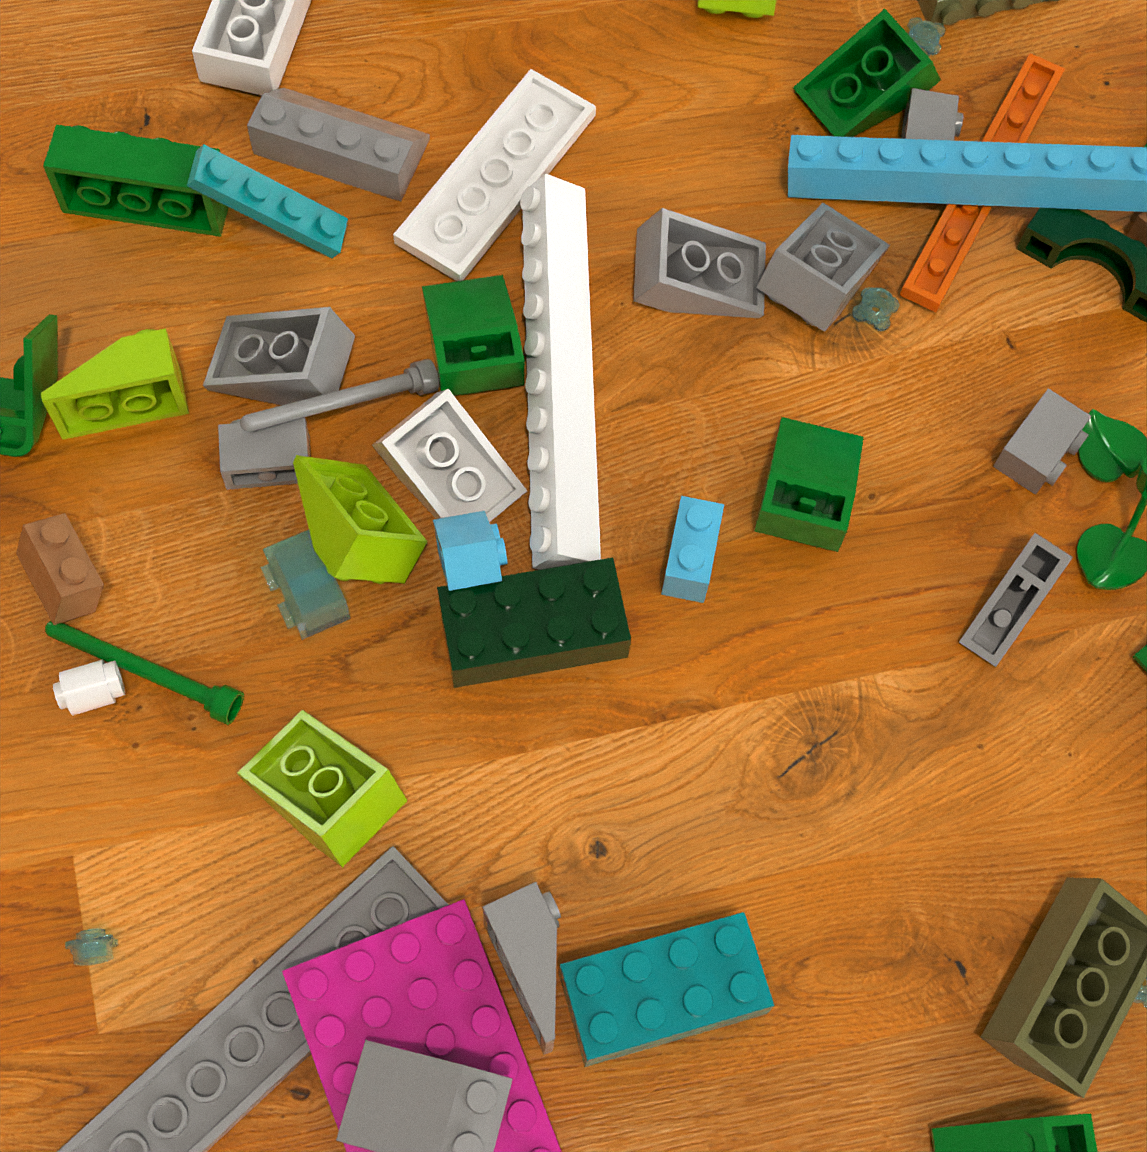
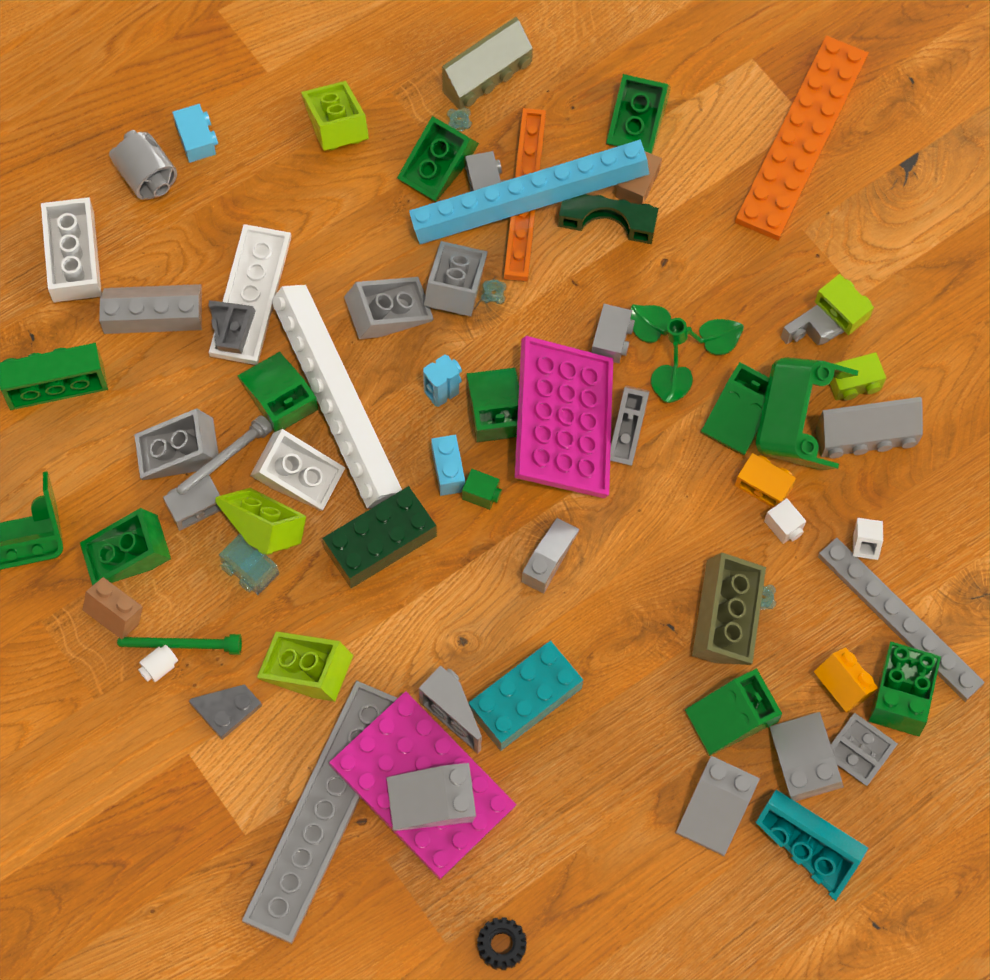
camera: 20 degrees left, 0 degrees up
(92, 947) = (223, 792): clear light blue plate -> none
(119, 387) = (101, 496): lime slope -> none
(130, 483) = (126, 548): none -> green slope
(165, 805) = (226, 708): none -> flat silver wing
(267, 201) = (133, 361): teal plate -> none
(443, 205) = (231, 325): none -> flat silver wing
(469, 550) = (330, 511): medium azure brick -> none
(731, 609) = (481, 489): none -> green brick
(737, 410) = (442, 380): none -> medium azure brick
(799, 762) = (549, 555): none -> light grey slope
(913, 546) = (564, 417): none -> dark pink plate

